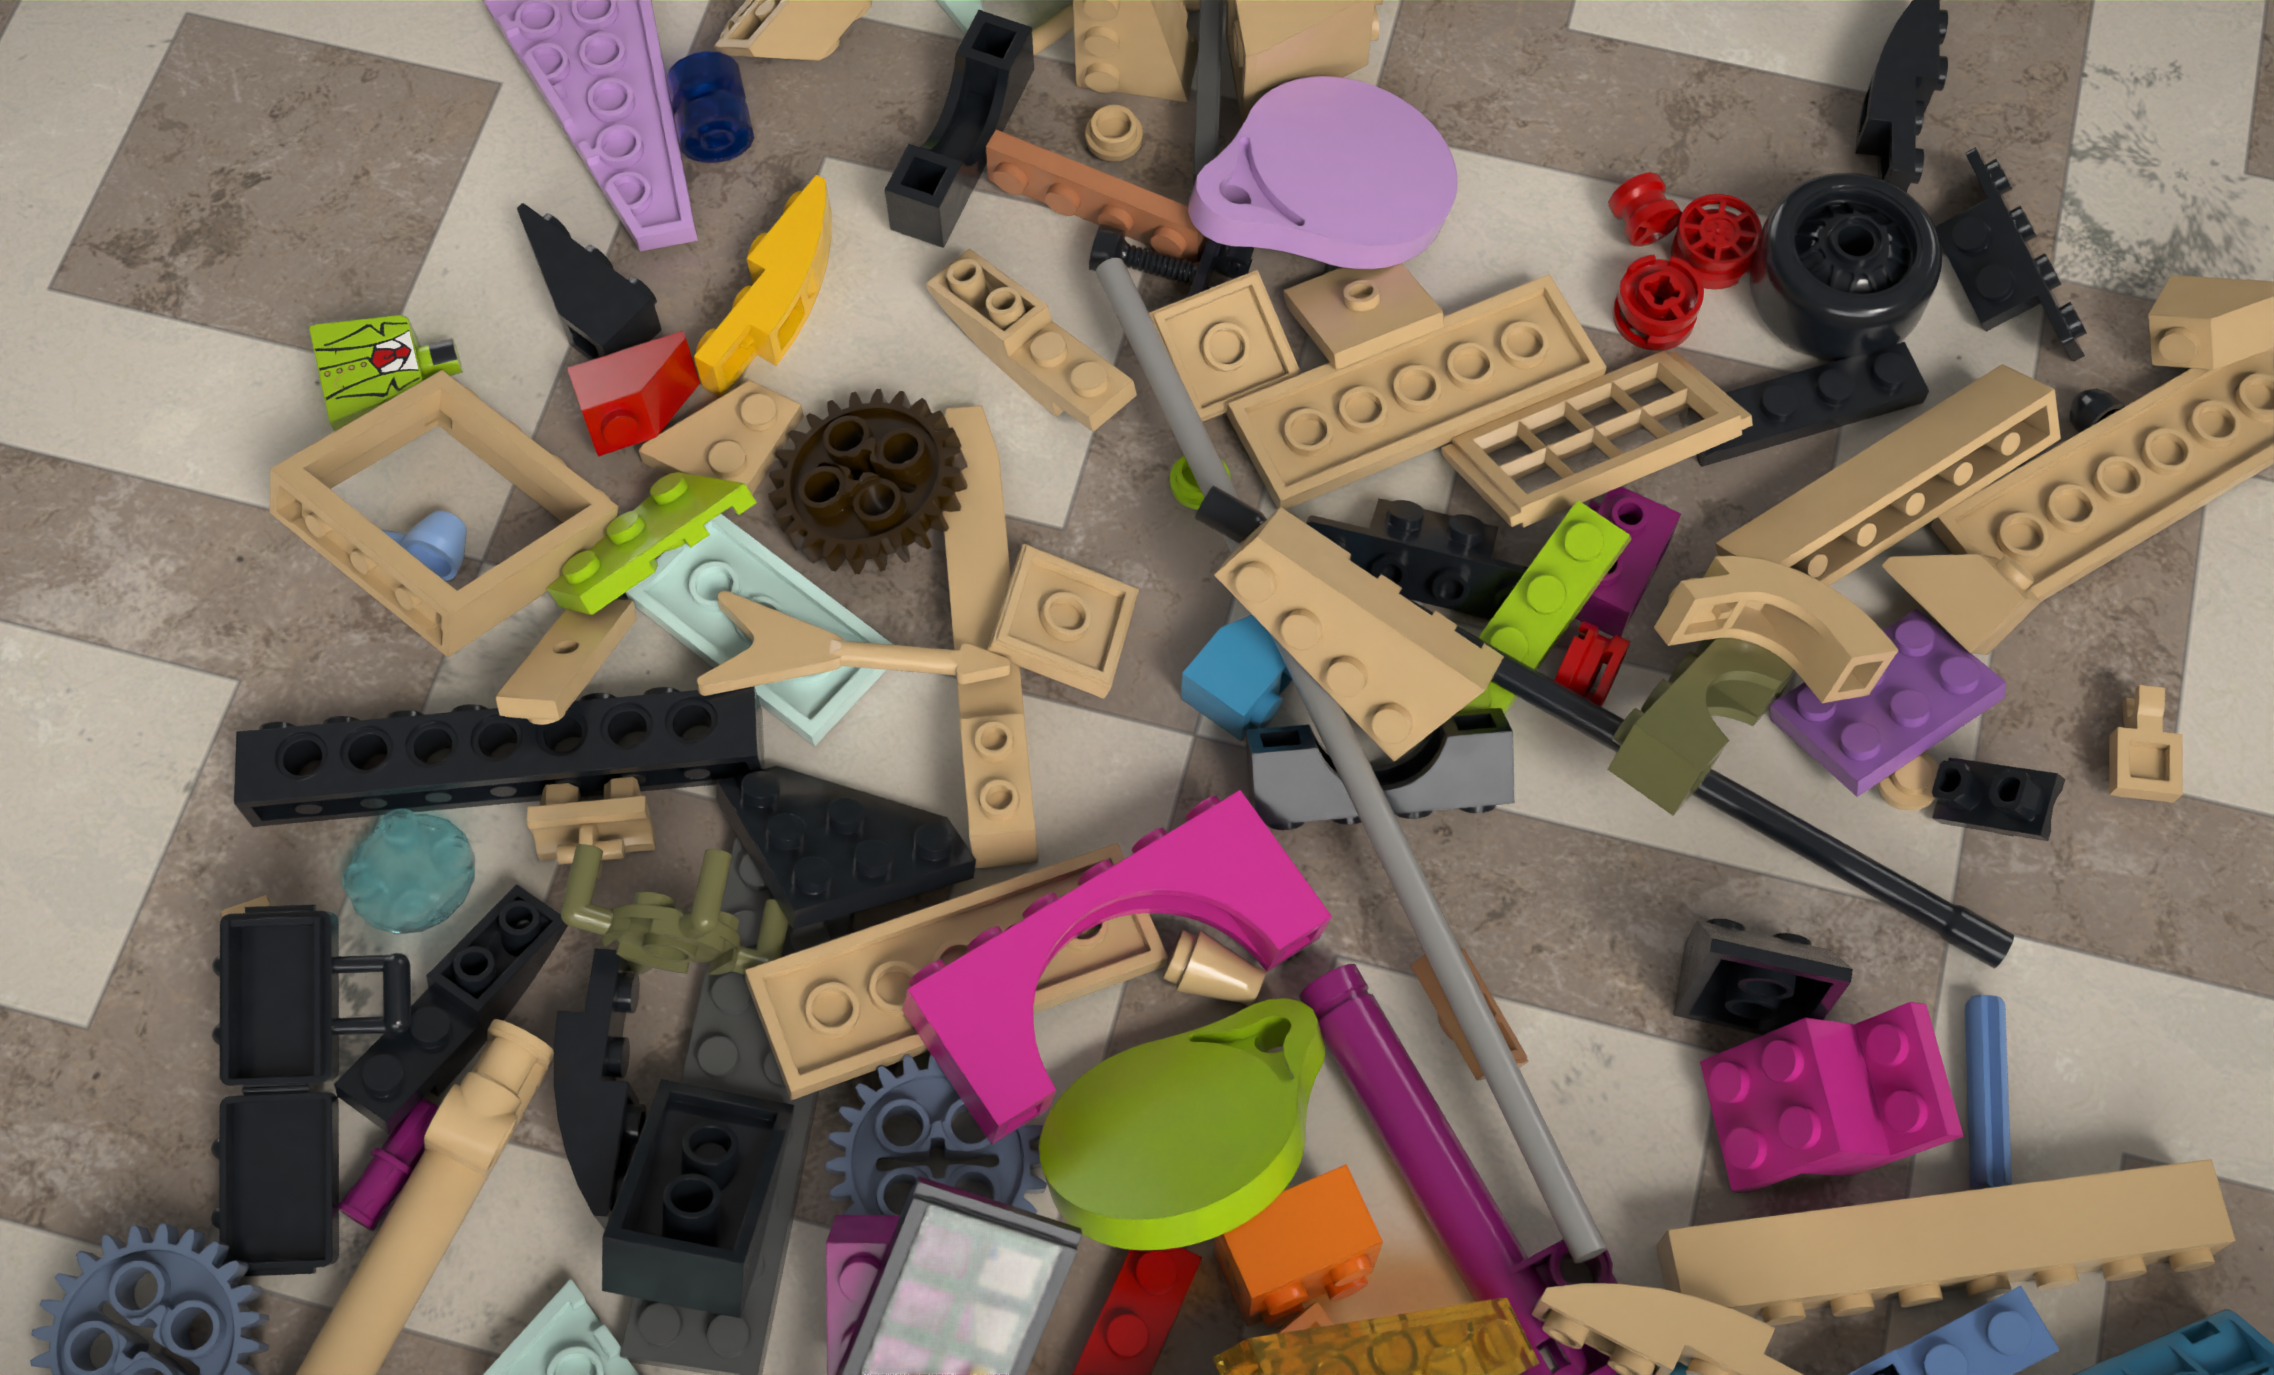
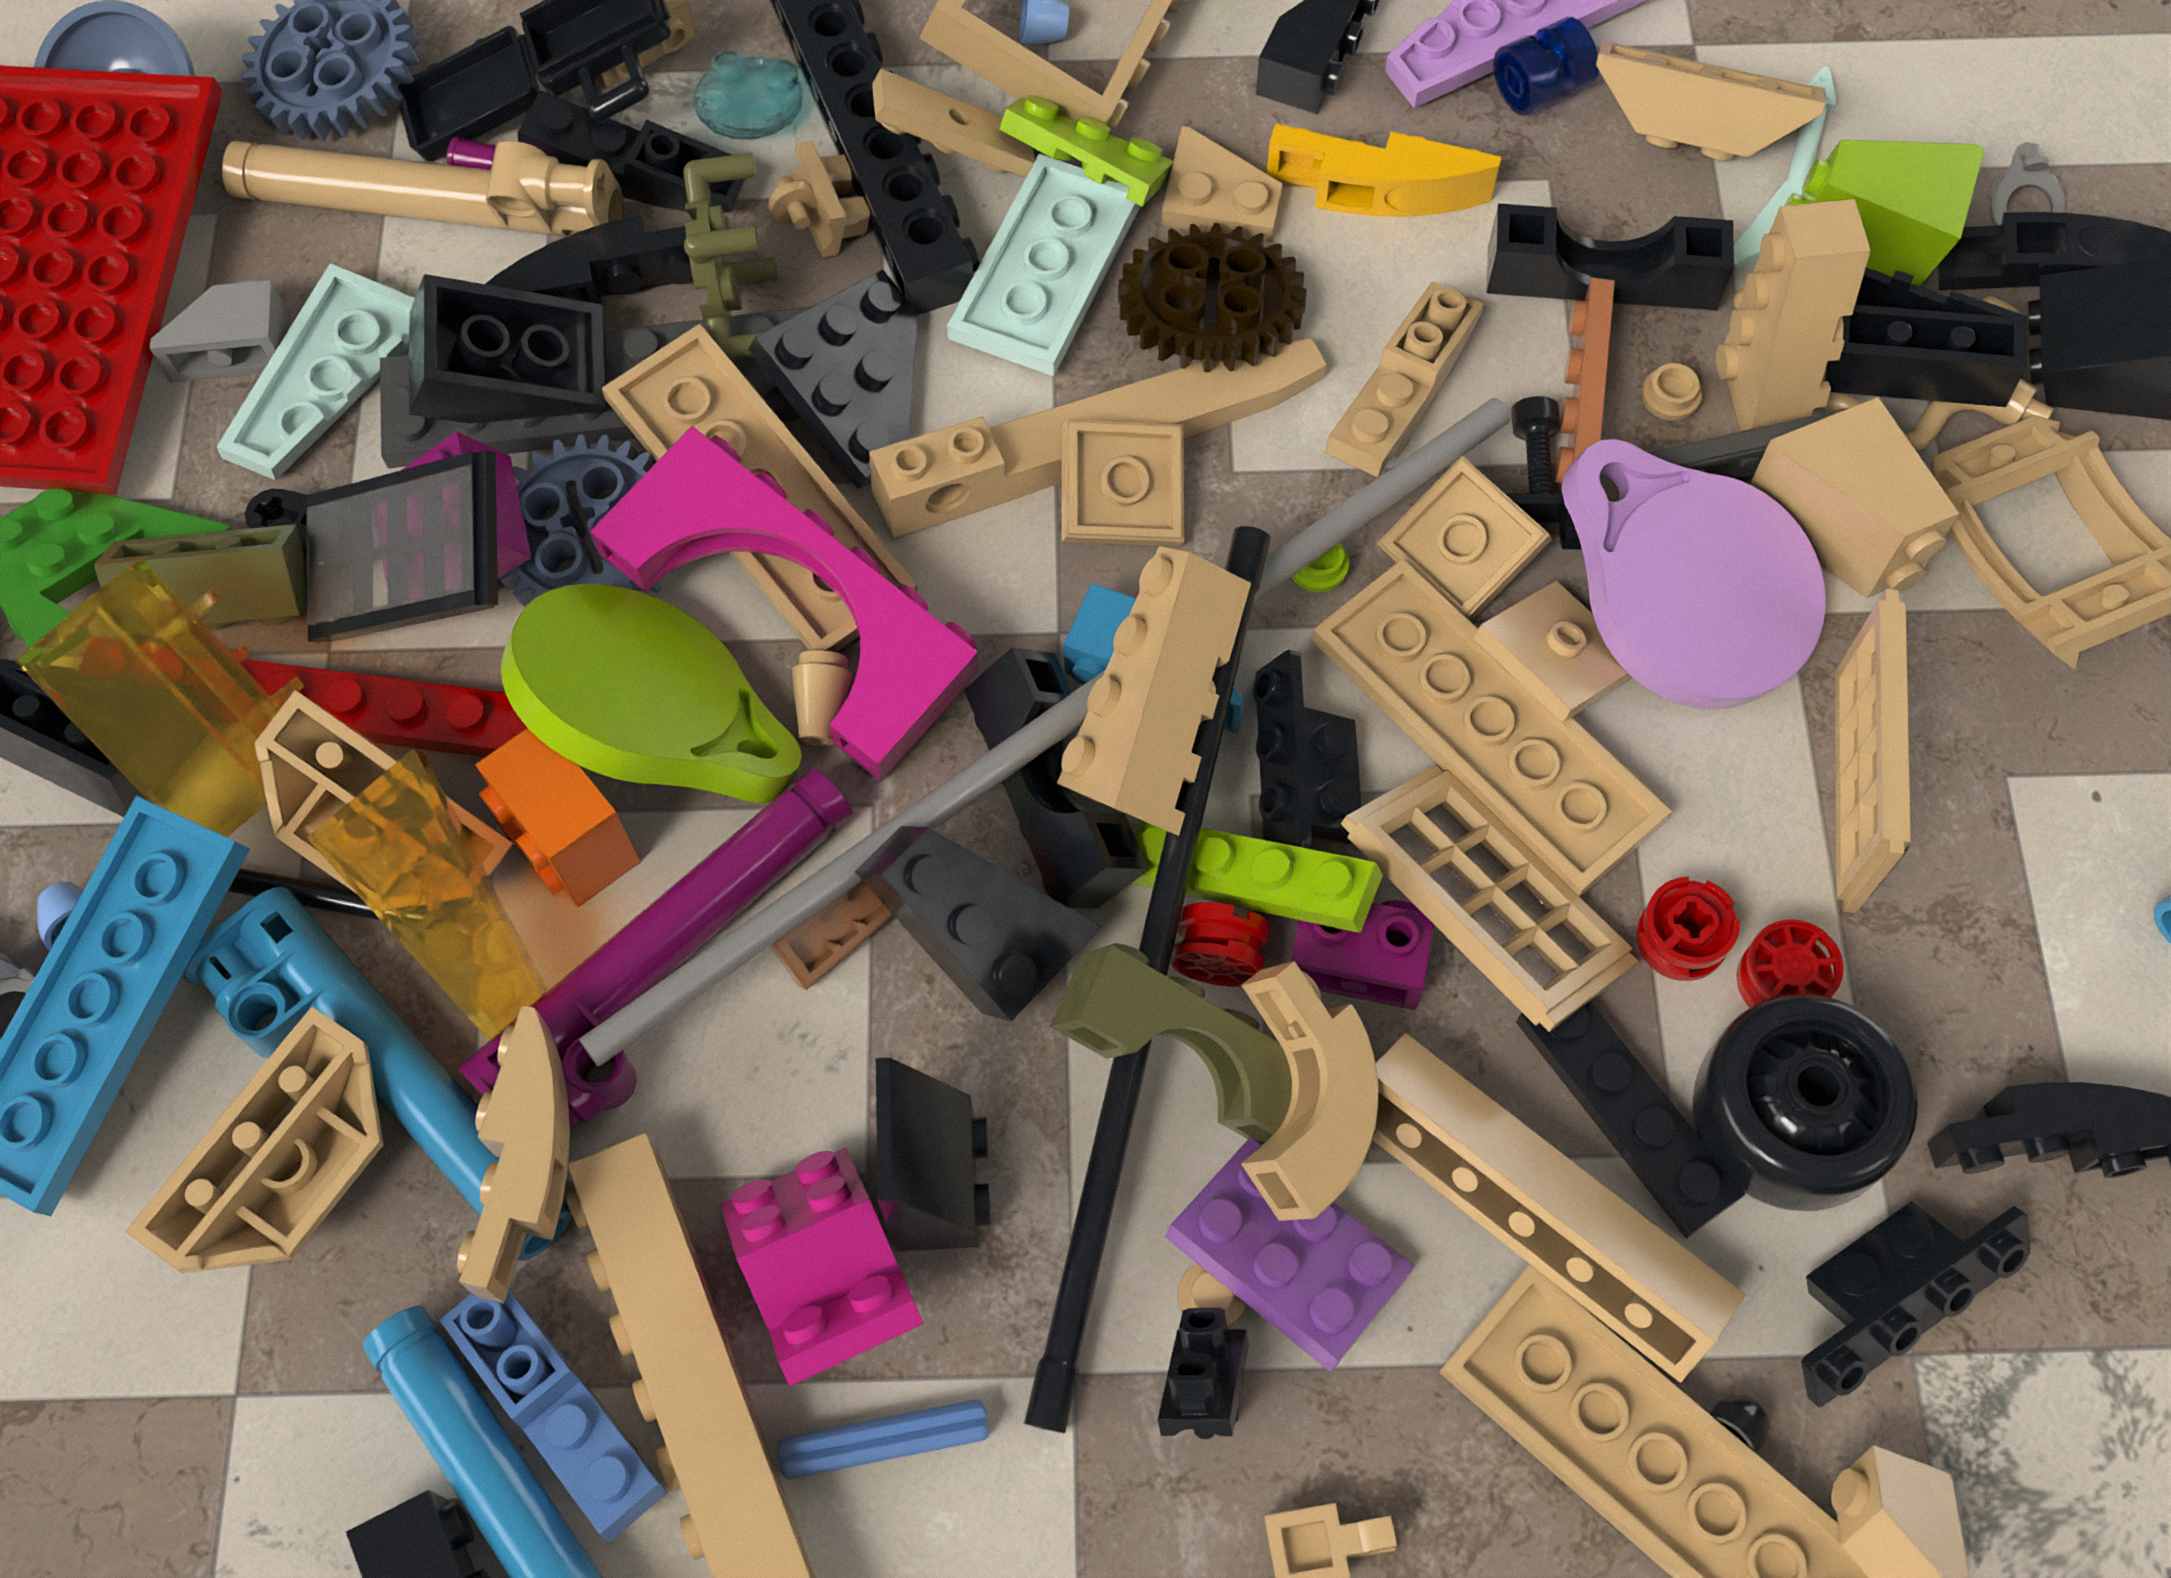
camera: 75 degrees right, 0 degrees up
(634, 391) = (1228, 97): red slope -> none
(794, 649) = (1017, 283): tan piece -> none
(1529, 869) = (975, 919): none -> black wedge
(1551, 99) = (1872, 754): none -> tan piece
(1644, 209) = (1796, 887): red wheel -> none
(1968, 594) = (1436, 1305): tan slope -> none

